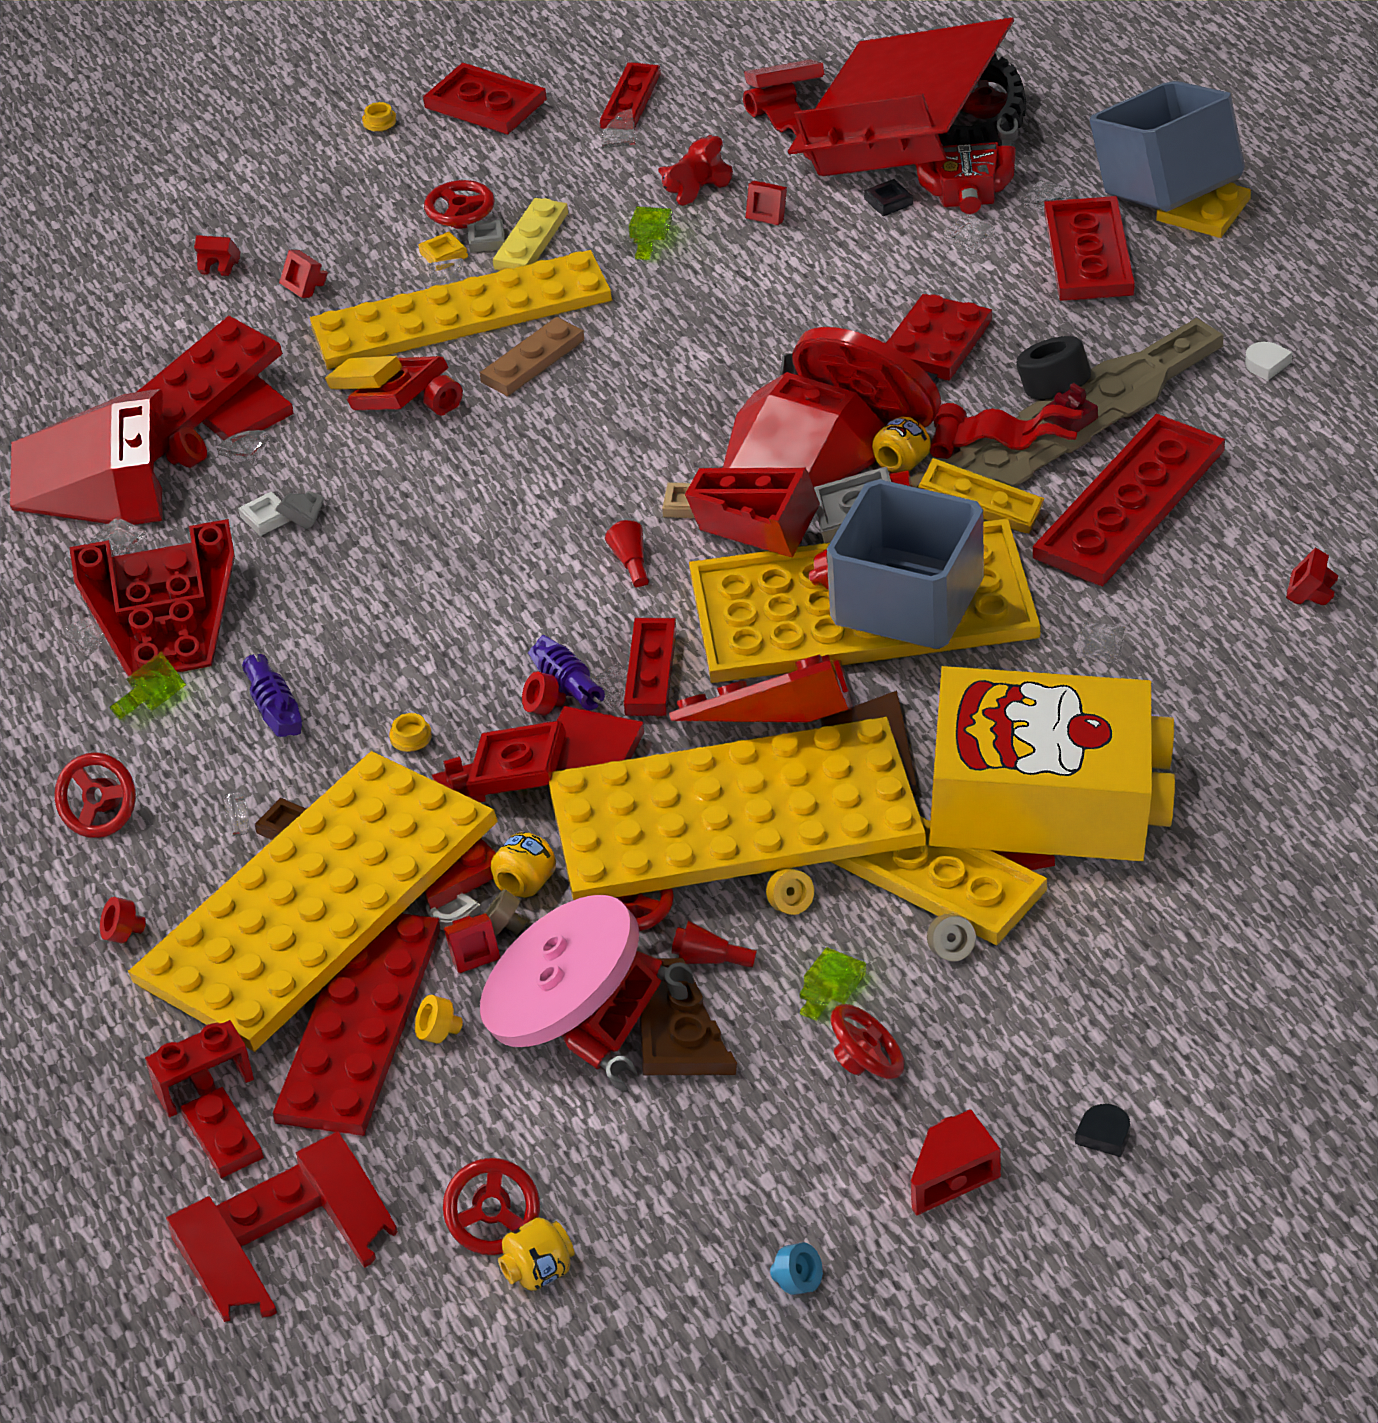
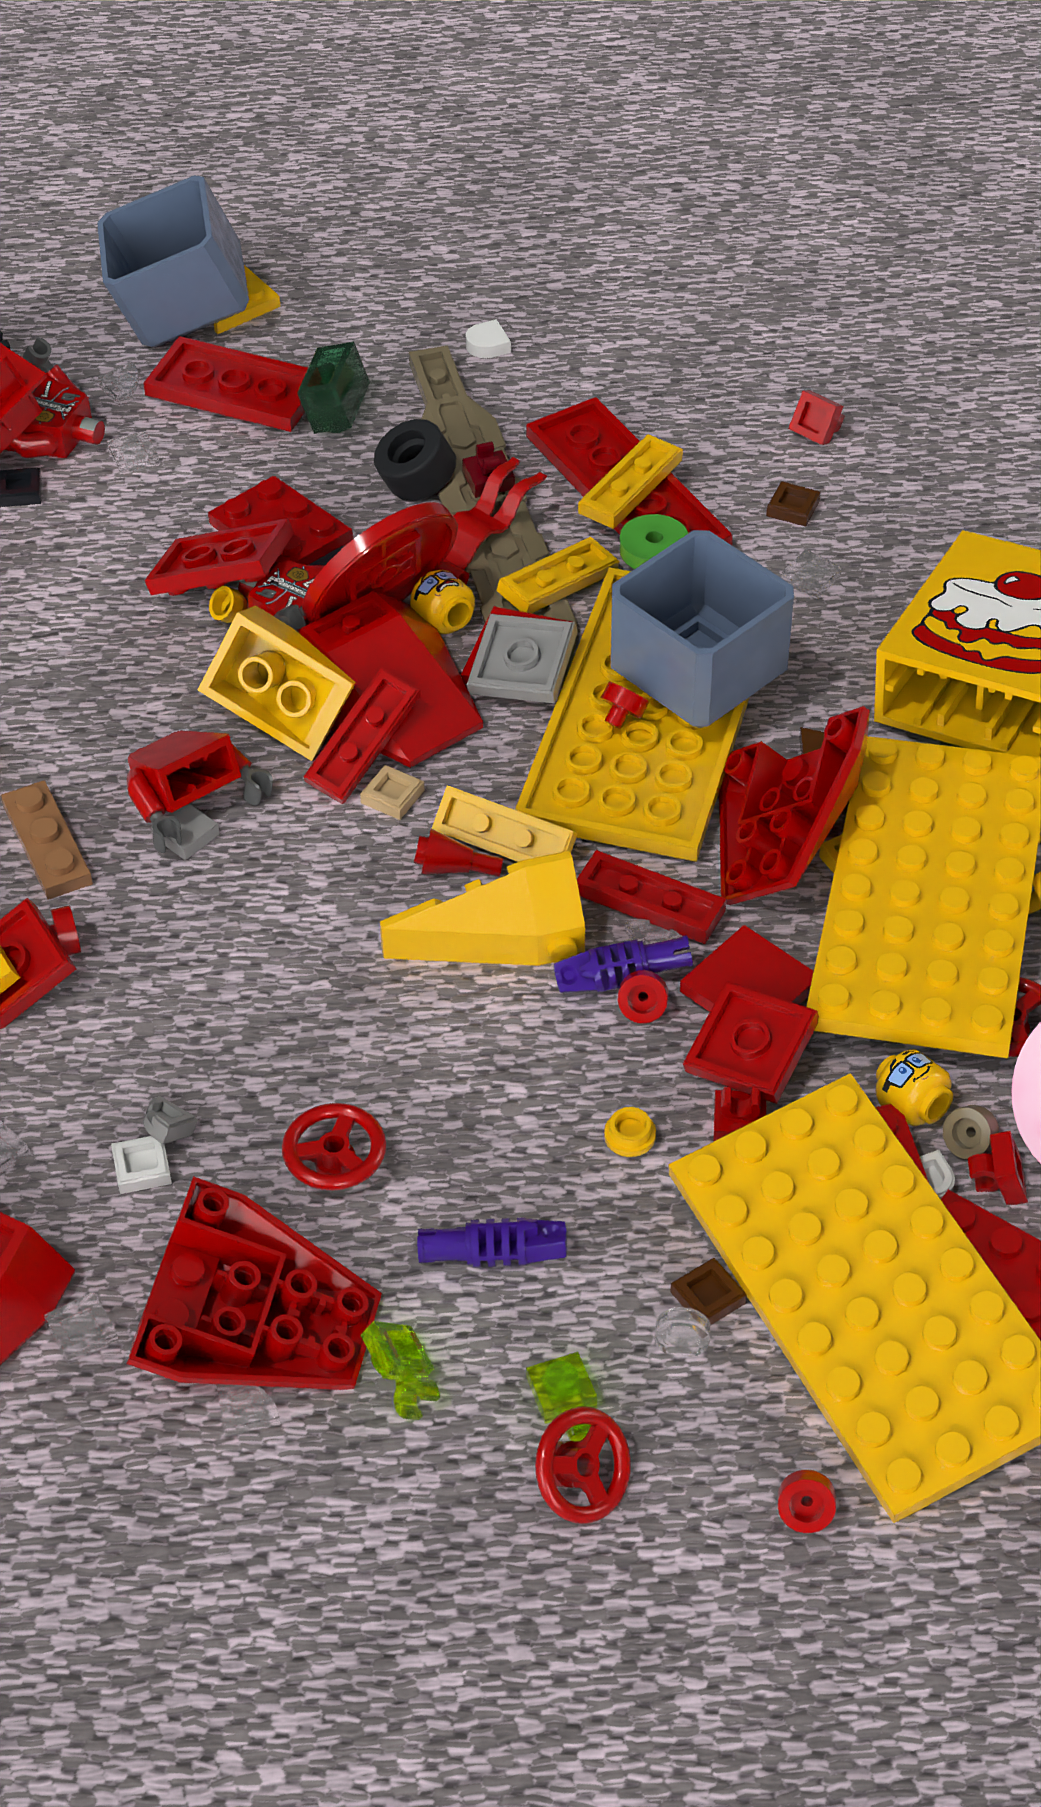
camera: 70 degrees left, 5 degrees up
(164, 778) = (562, 1386): none -> clear neon green plate
(314, 593) = (333, 1155): none -> red piece
(572, 593) = (514, 920): none -> yellow wedge
(580, 415) = (196, 831): none -> light grey tile
(616, 381) = (183, 770): none -> red torso
(670, 566) = (499, 827): none -> yellow tile
(725, 450) = (362, 736): none -> red tile
(733, 377) = (277, 681): none -> yellow slope
(754, 505) = (486, 725): red wedge -> none
(857, 311) = (219, 558): none -> red plate
(1048, 530) = (648, 536): none -> bright green piece
(1109, 294) = (333, 388): none -> clear green brick
(1120, 491) = (630, 481): none -> yellow tile
(1189, 605) = (793, 503): none -> reddish brown tile

